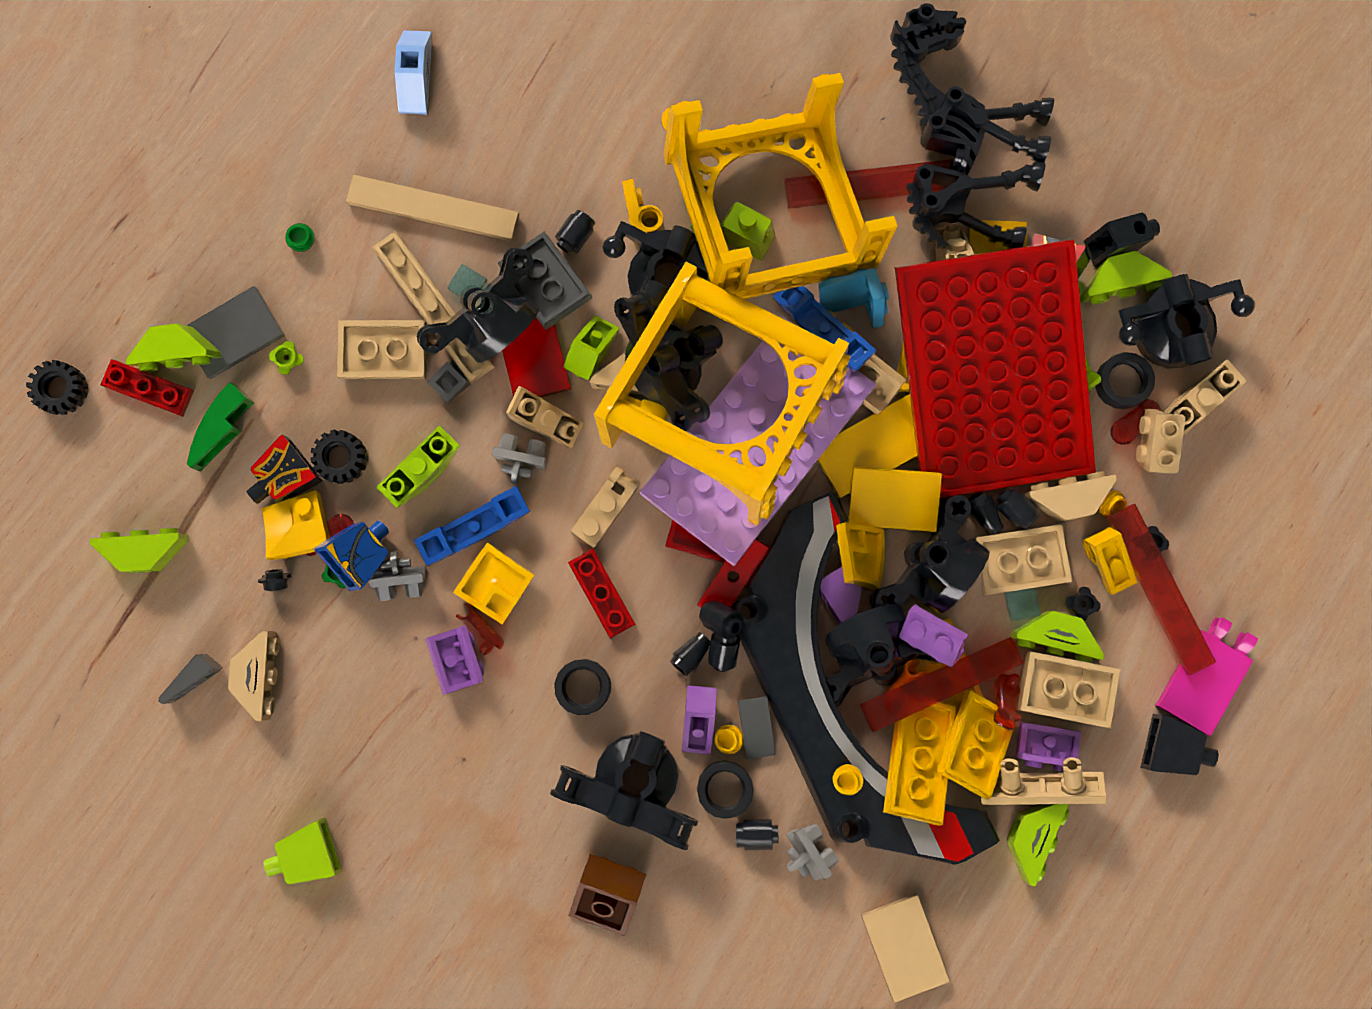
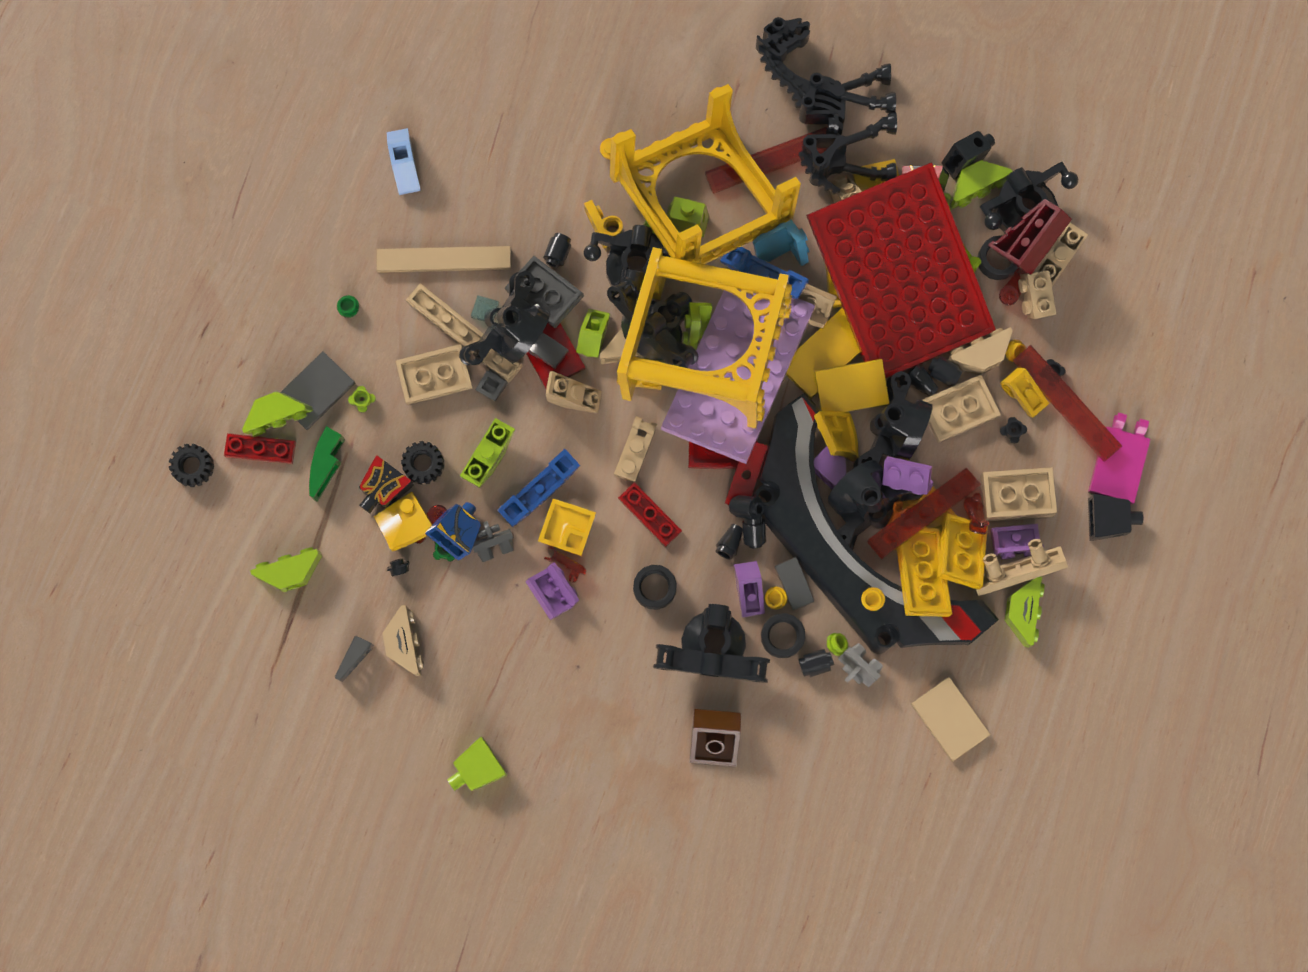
camera: 15 degrees left, 5 degrees down
(508, 452) = (551, 427): light grey hips -> none
(528, 356) = (548, 350): none -> dark grey slope
(720, 369) = (696, 323): none -> lime bracket
(789, 817) = (837, 643): none -> lime plate
(1022, 604) = (968, 441): clear light blue tile -> none
(1059, 635) = (1002, 456): lime slope -> none
(1178, 368) = (1033, 236): none -> dark red wedge

